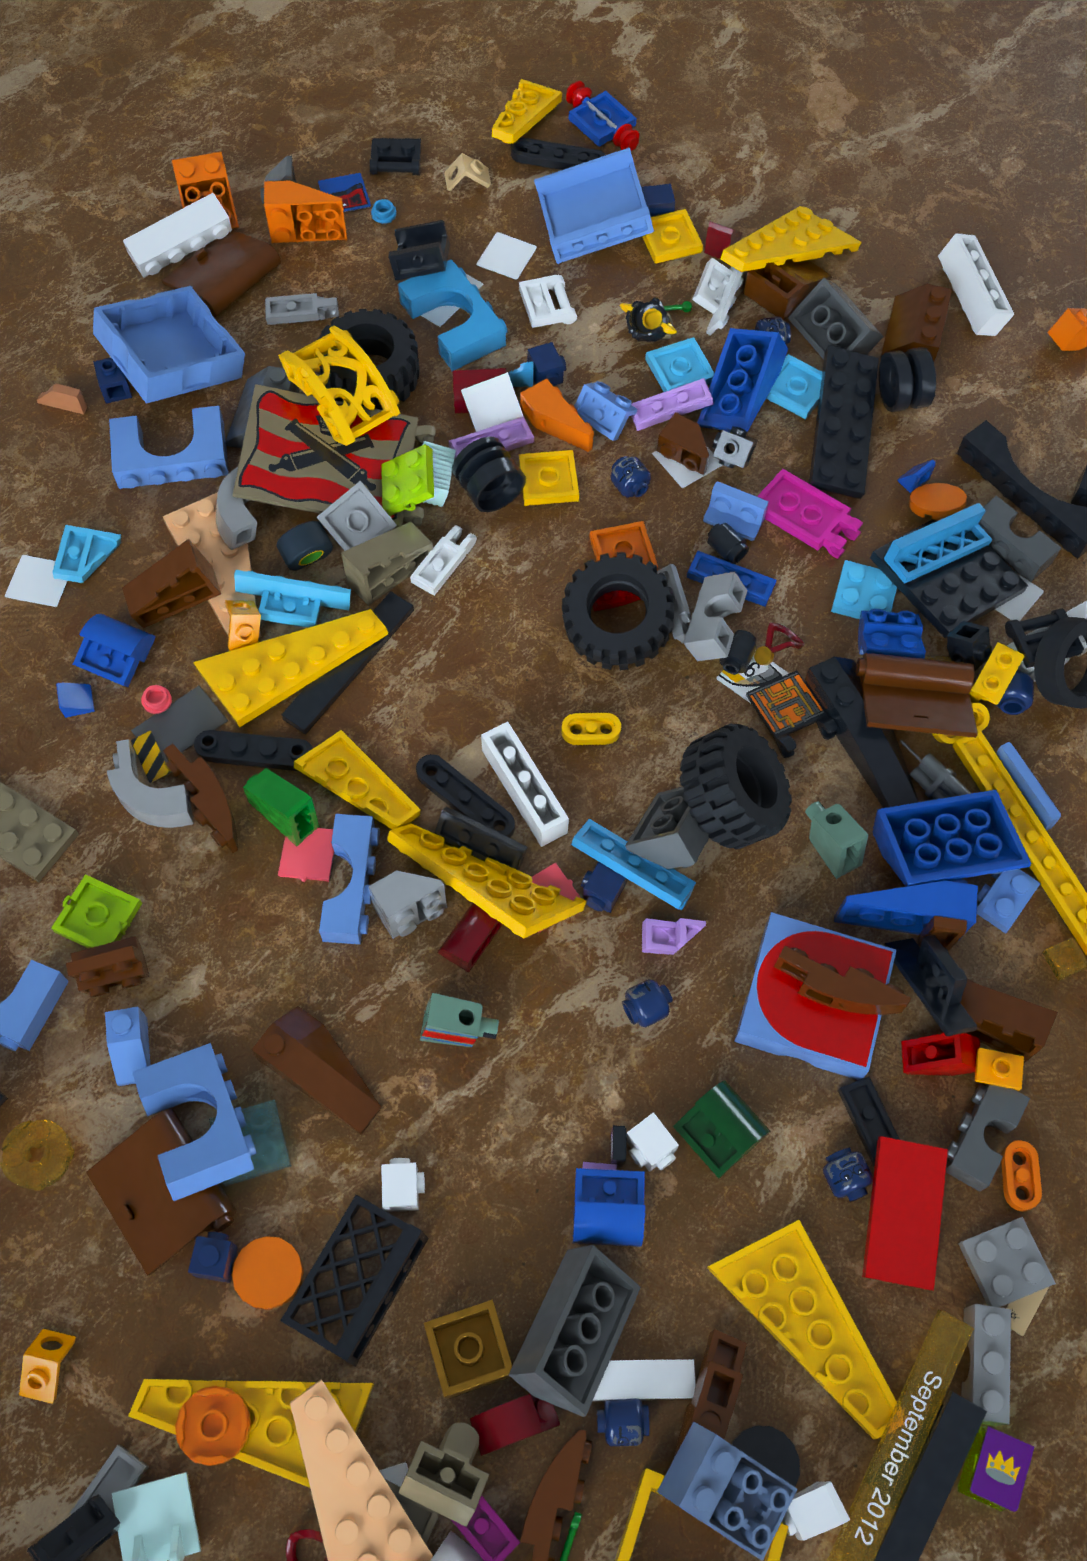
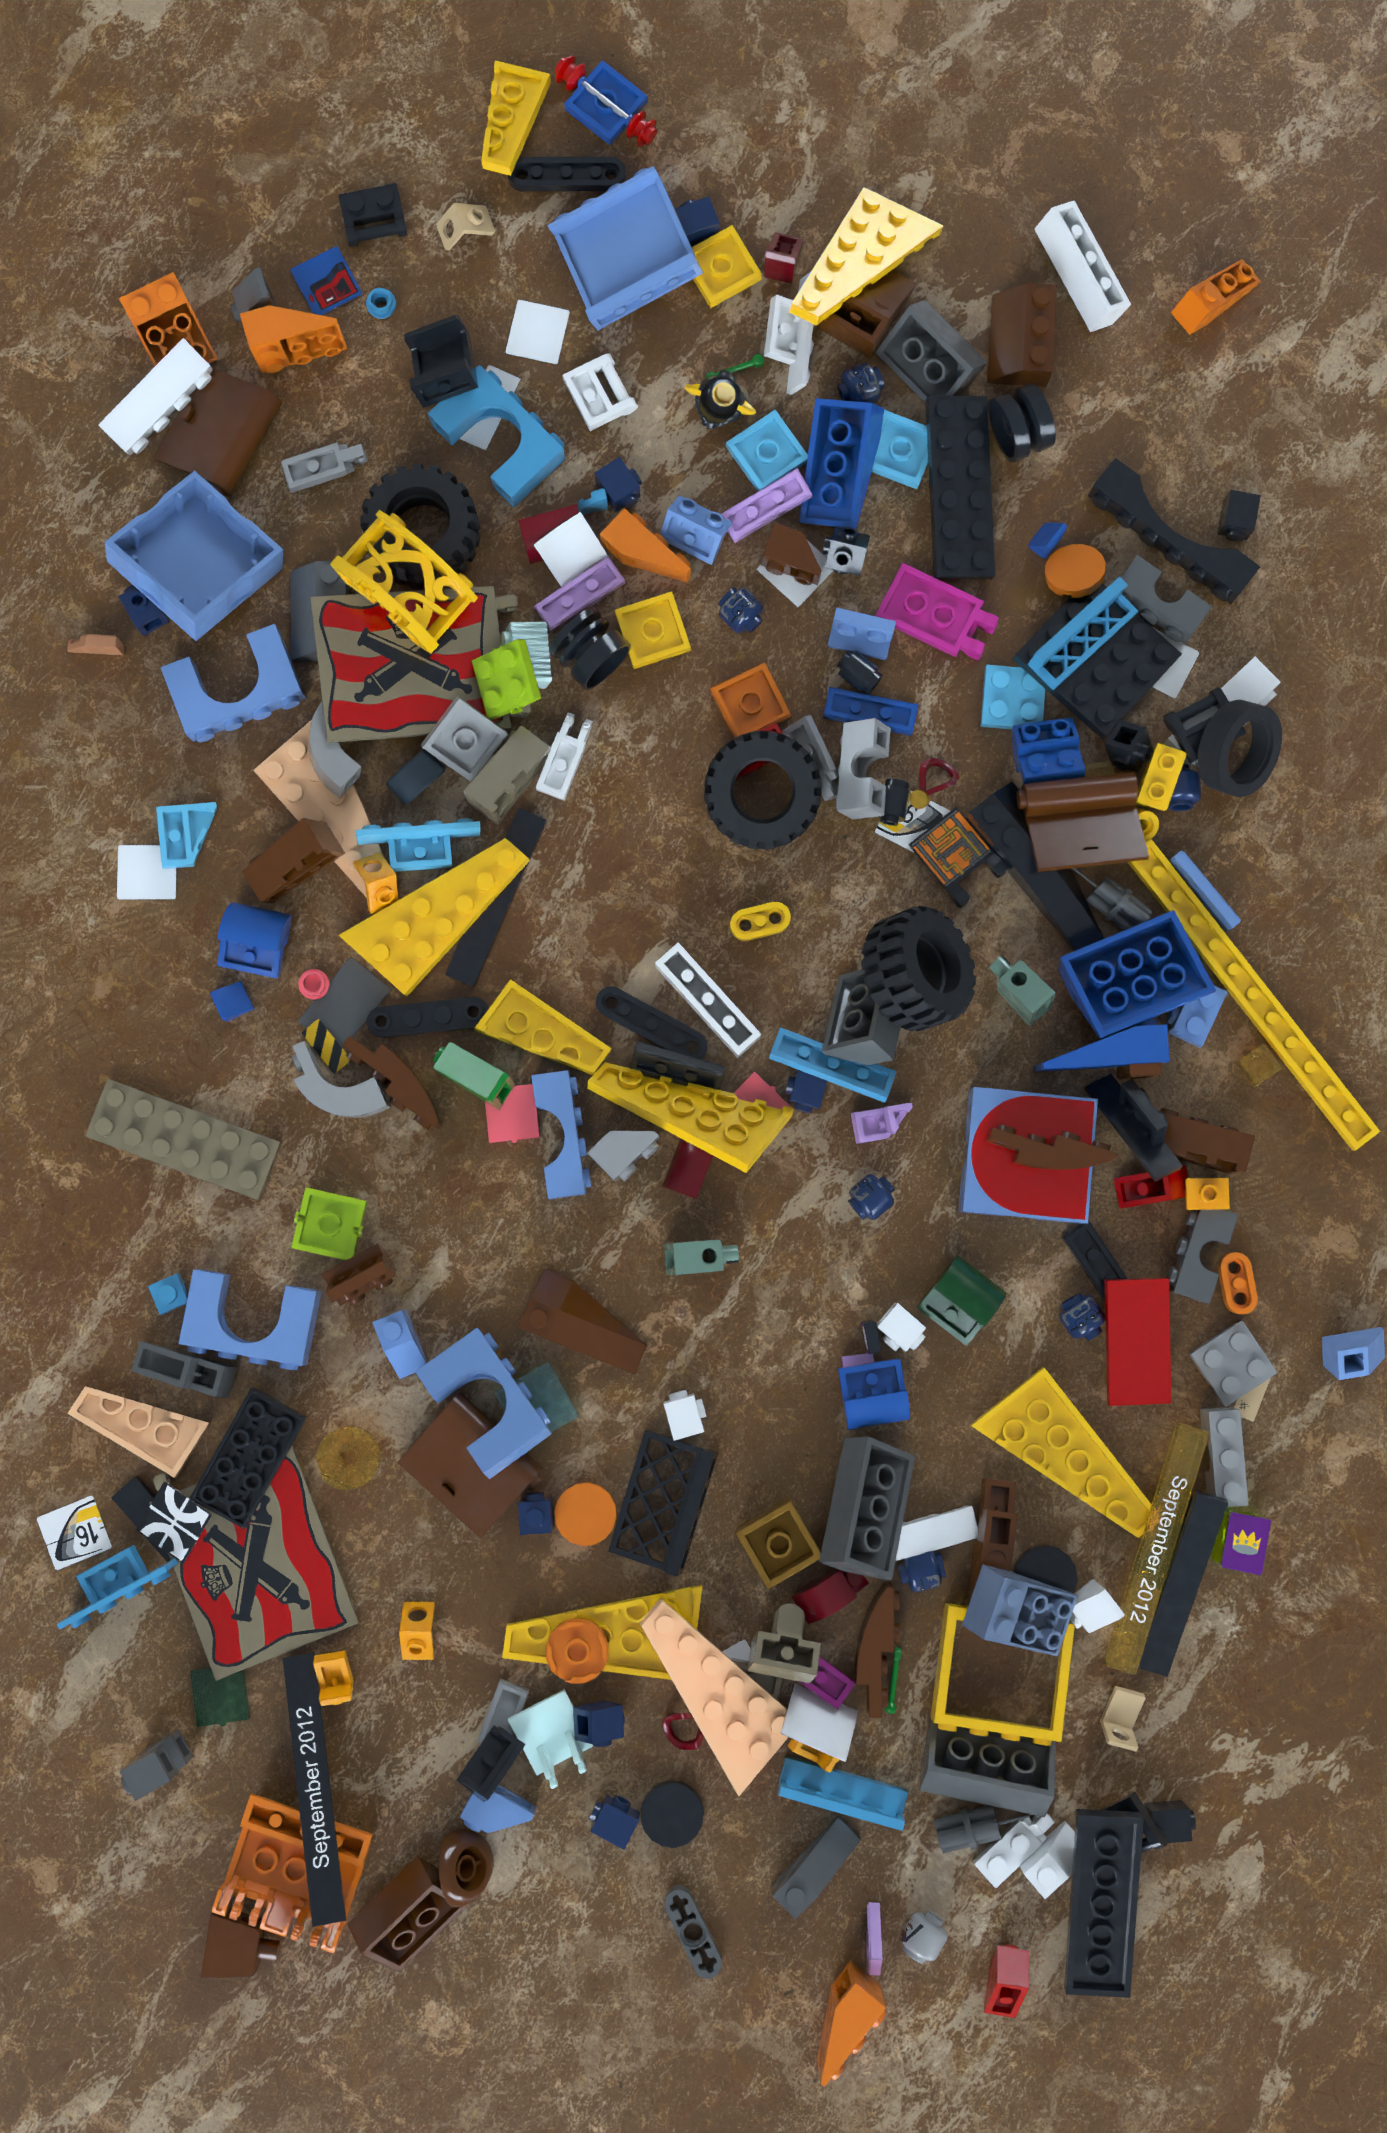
camera: 10 degrees left, 20 degrees up
(213, 1521) = (598, 1723): none -> dark blue brick

